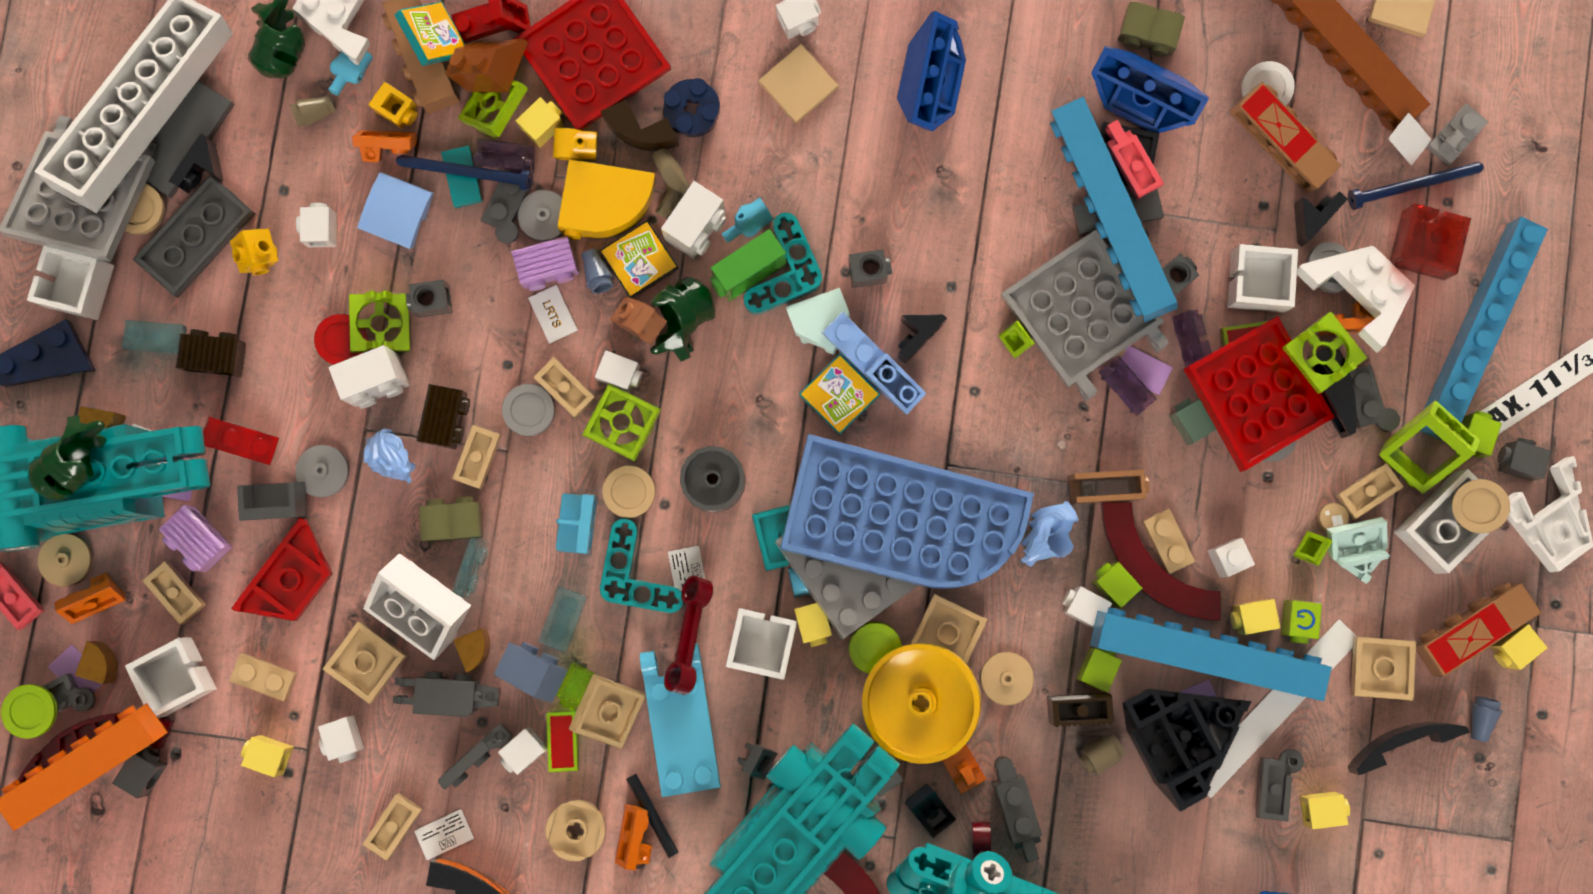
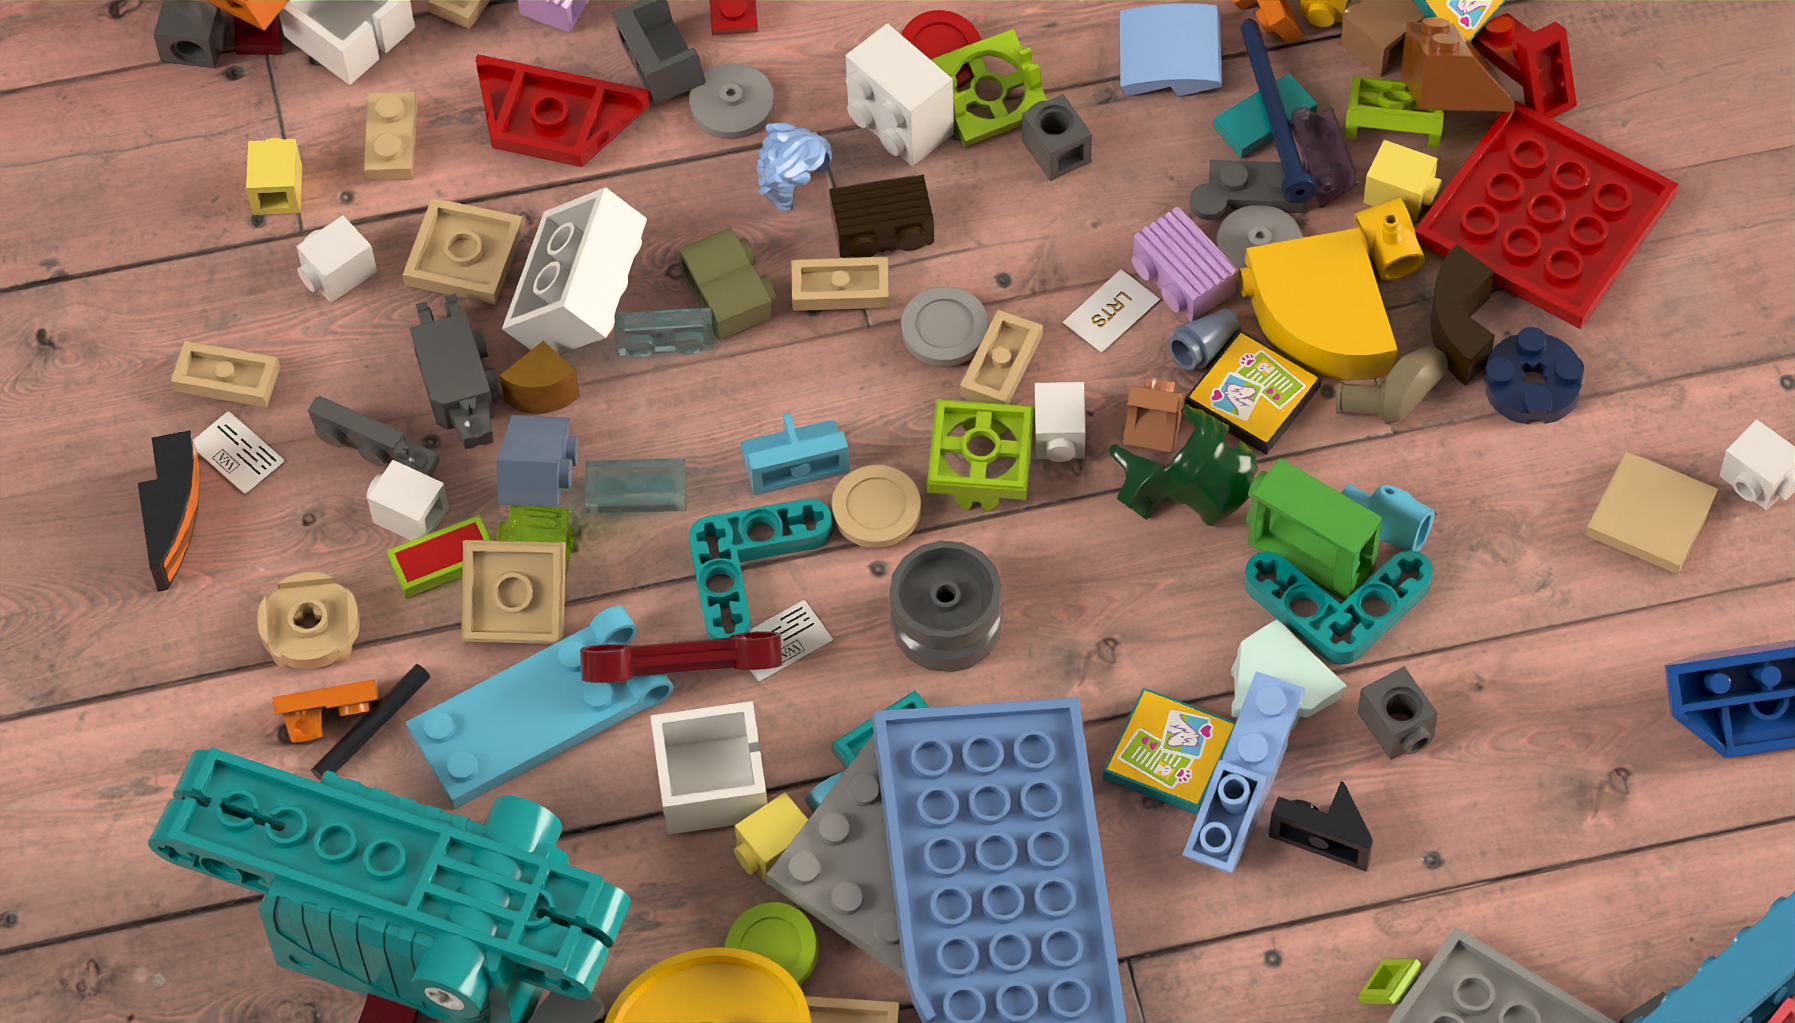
camera: 70 degrees right, 25 degrees down
(694, 220) = (1348, 428): white piece -> none

